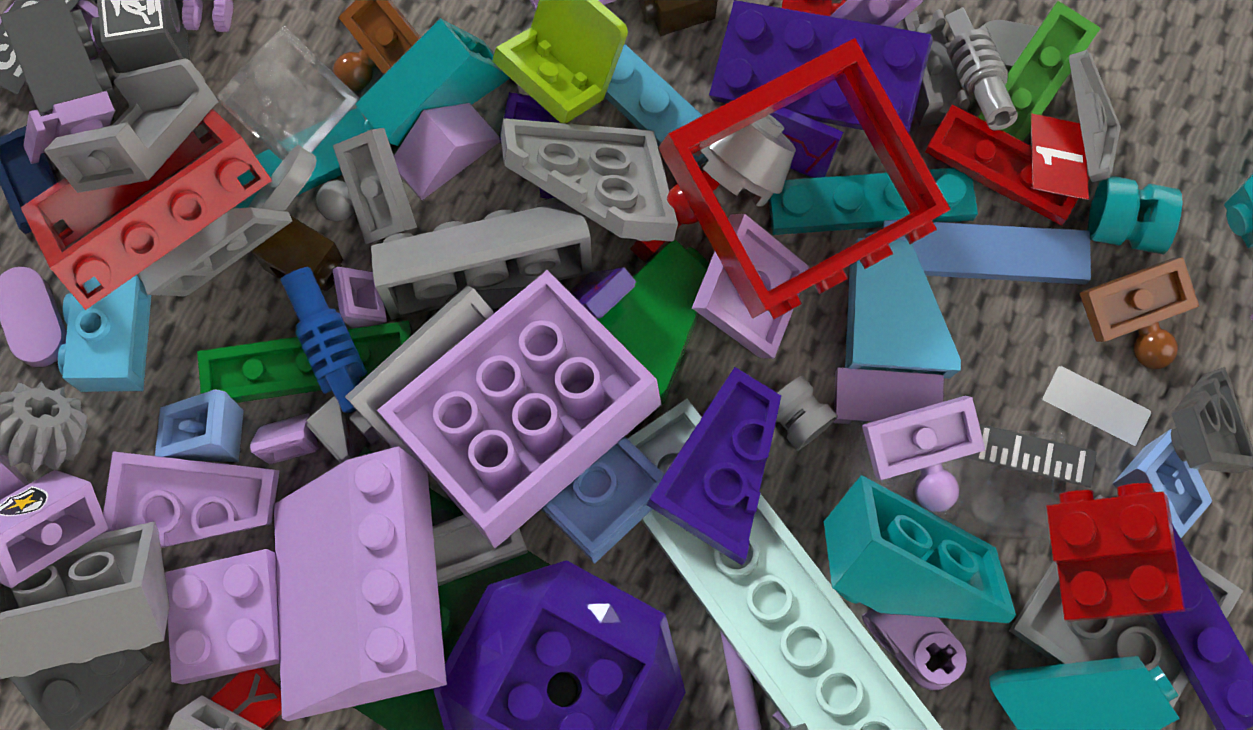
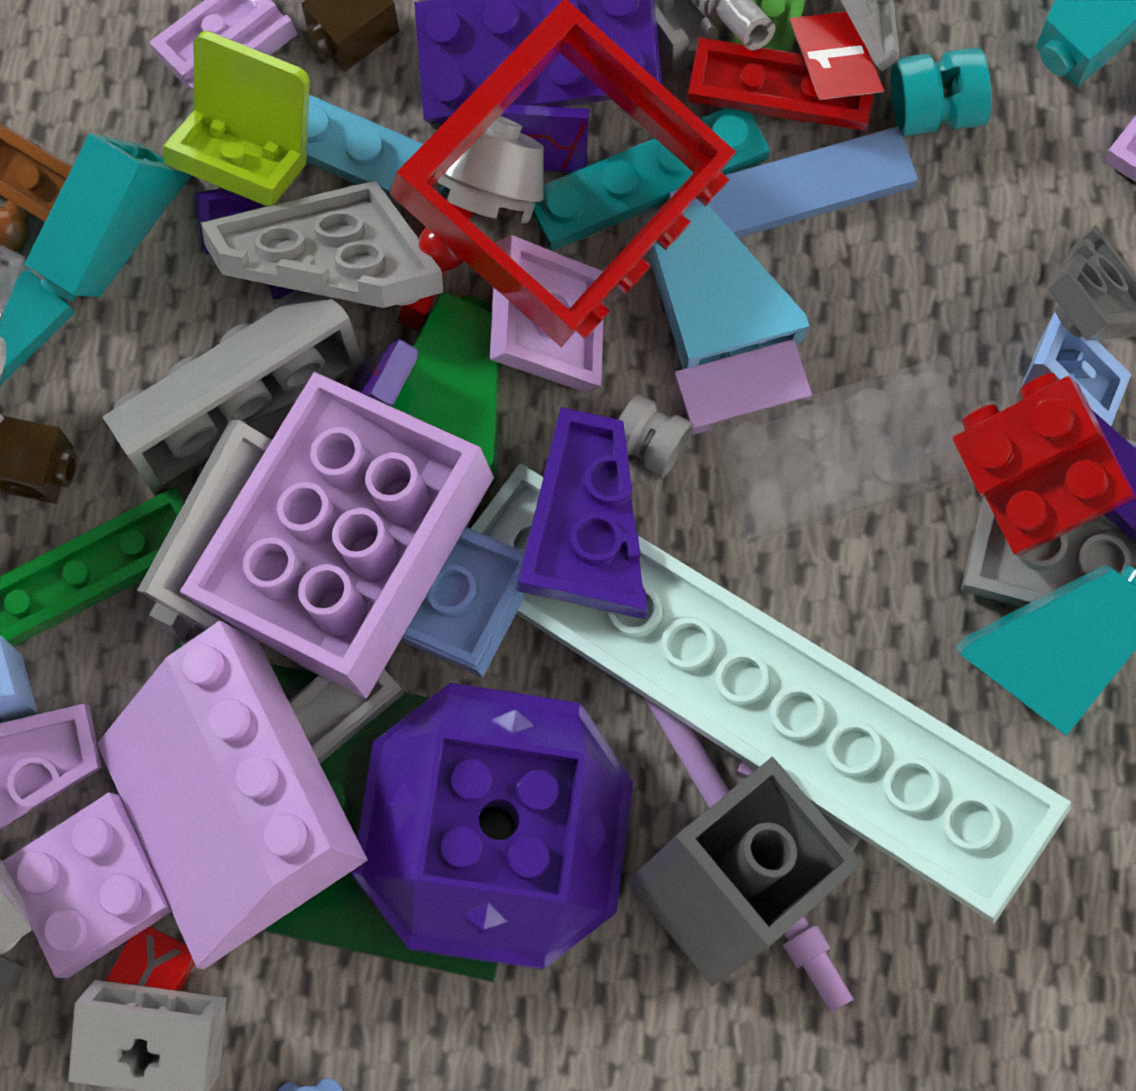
camera: 15 degrees left, 0 degrees up
(284, 440) = (83, 668): lavender slope -> none
(324, 337) = (88, 536): blue hinge -> none
(333, 430) = (132, 636): light grey slope -> none
(358, 298) = (110, 479): lavender slope -> none
(370, 188) = (77, 354): light grey plate -> none
(442, 146) = (140, 280): lavender slope -> none
(910, 638) = (857, 628): lavender piece -> none
(911, 560) = (826, 548): teal slope -> none
(923, 442) = (796, 417): lavender plate -> none
(1036, 456) = (919, 391): dark grey sticker -> none
(1097, 405) = (972, 315): white sticker -> none
(1139, 304) = (979, 188): dark orange plate -> none

